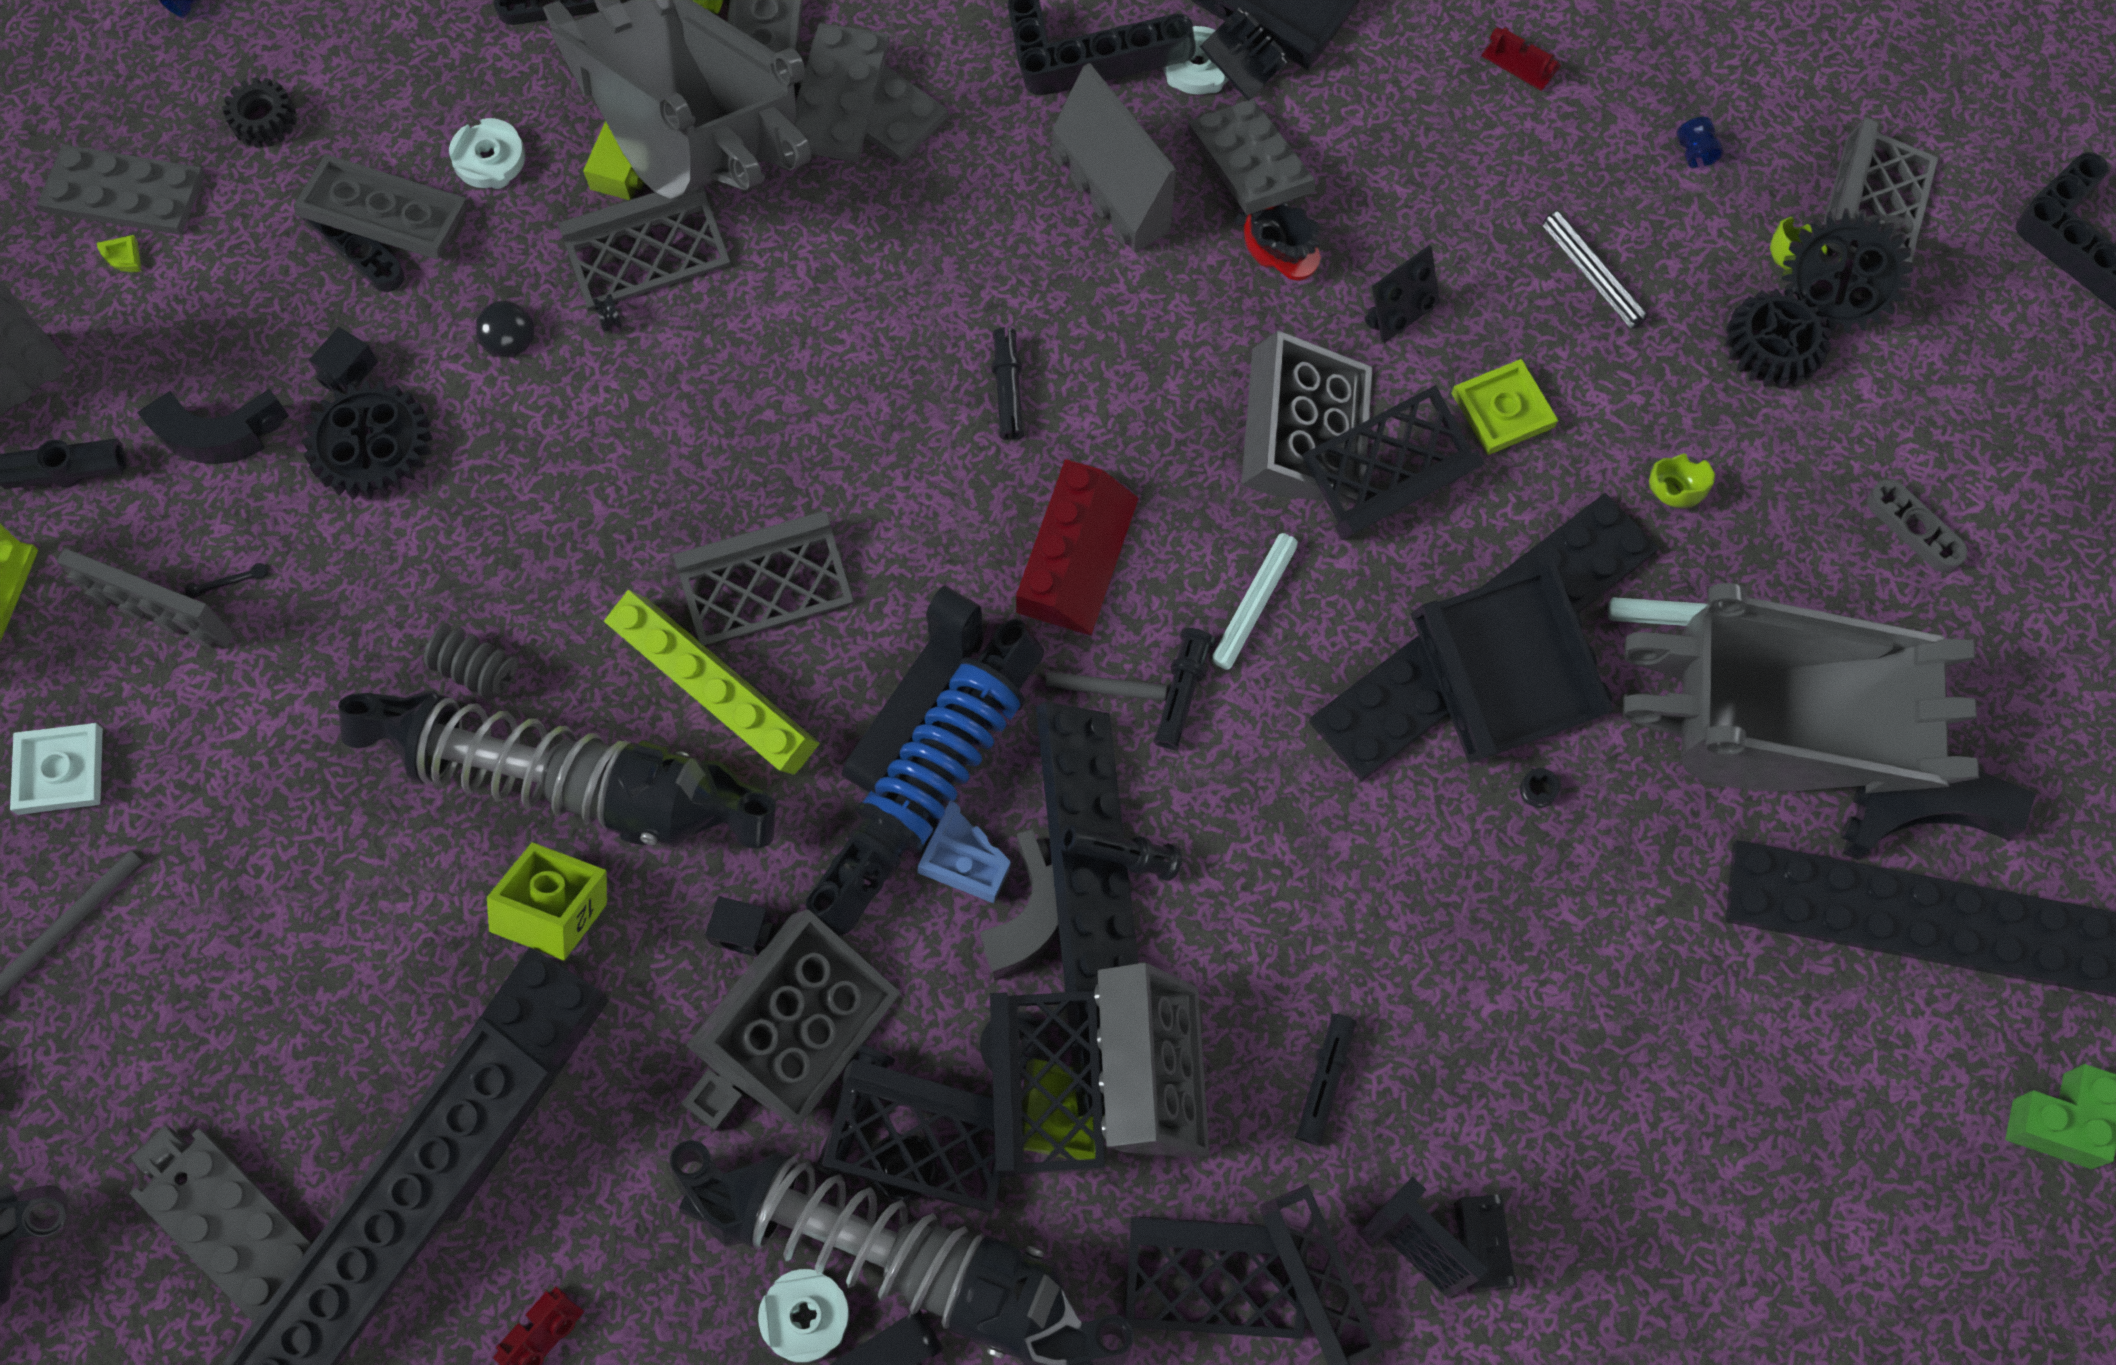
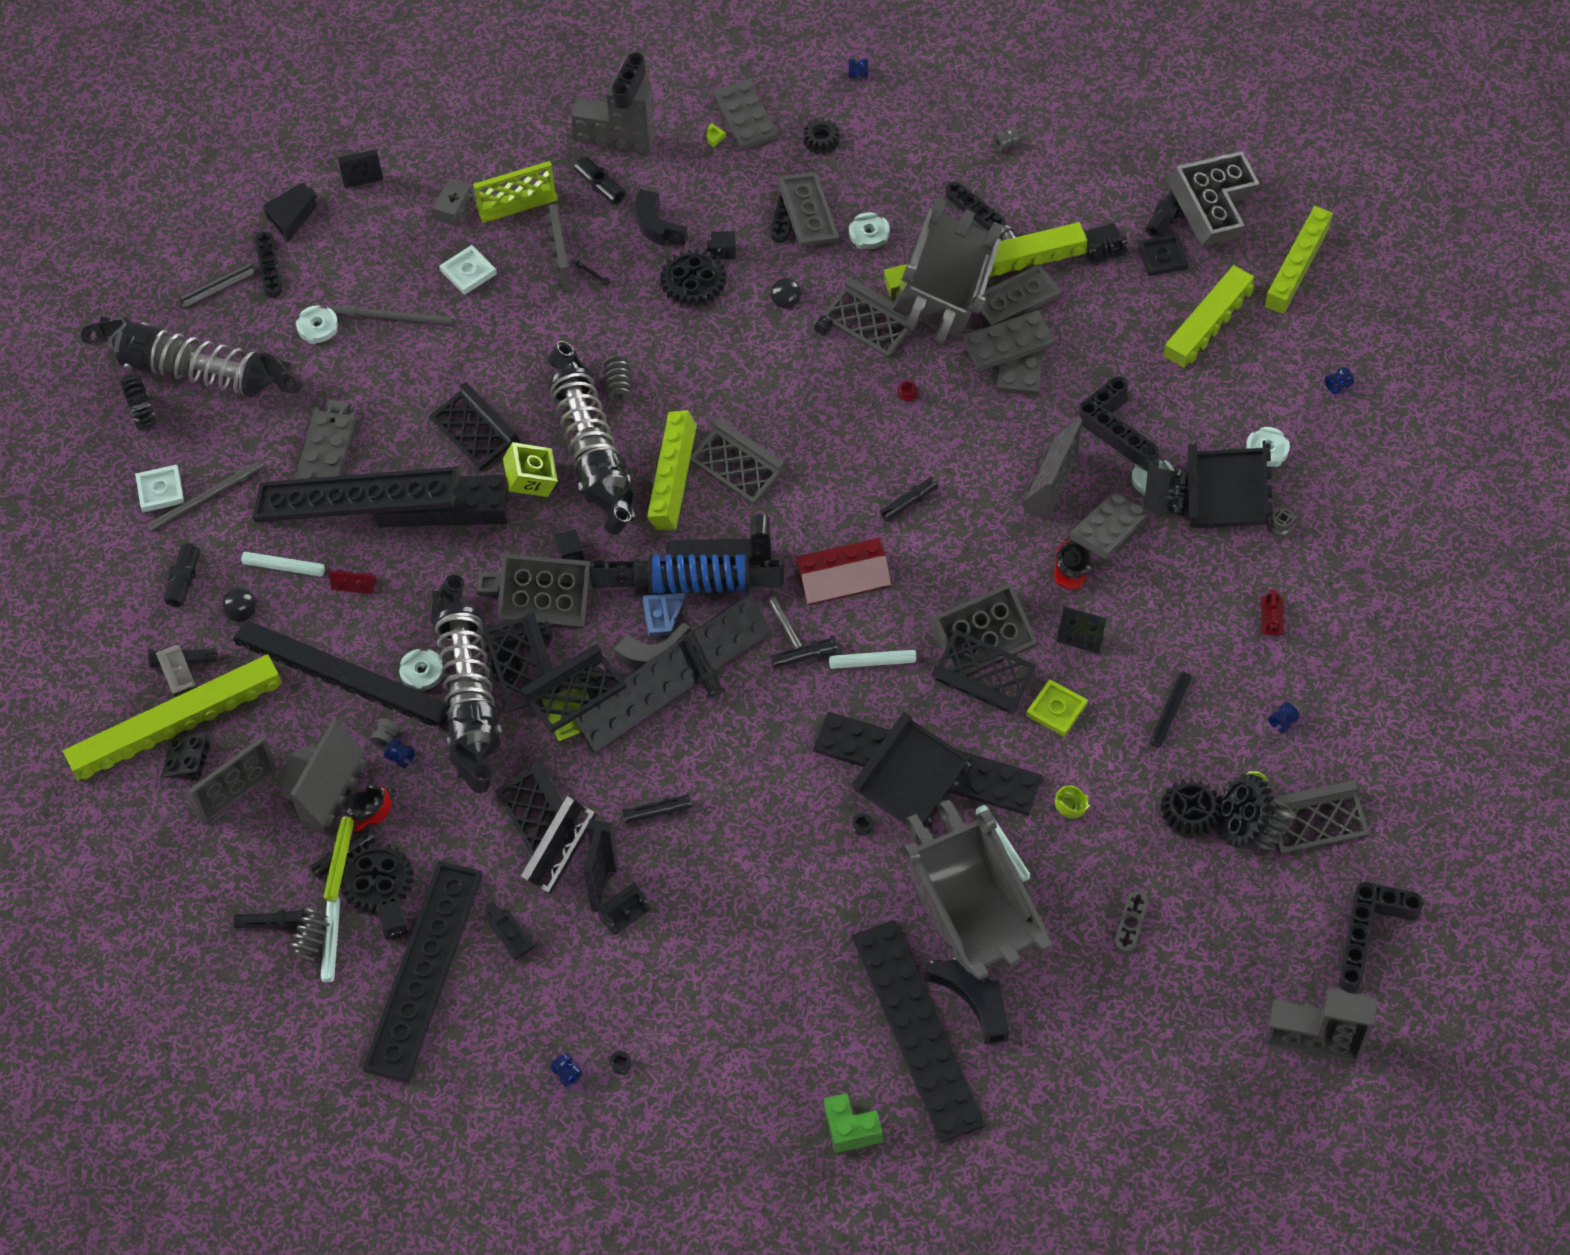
camera: 60 degrees right, 10 degrees down
(379, 906) = (489, 417): none -> black fence
(815, 273) = (907, 391): none -> dark red plate
(1151, 1062) = (613, 730): dark grey slope -> none

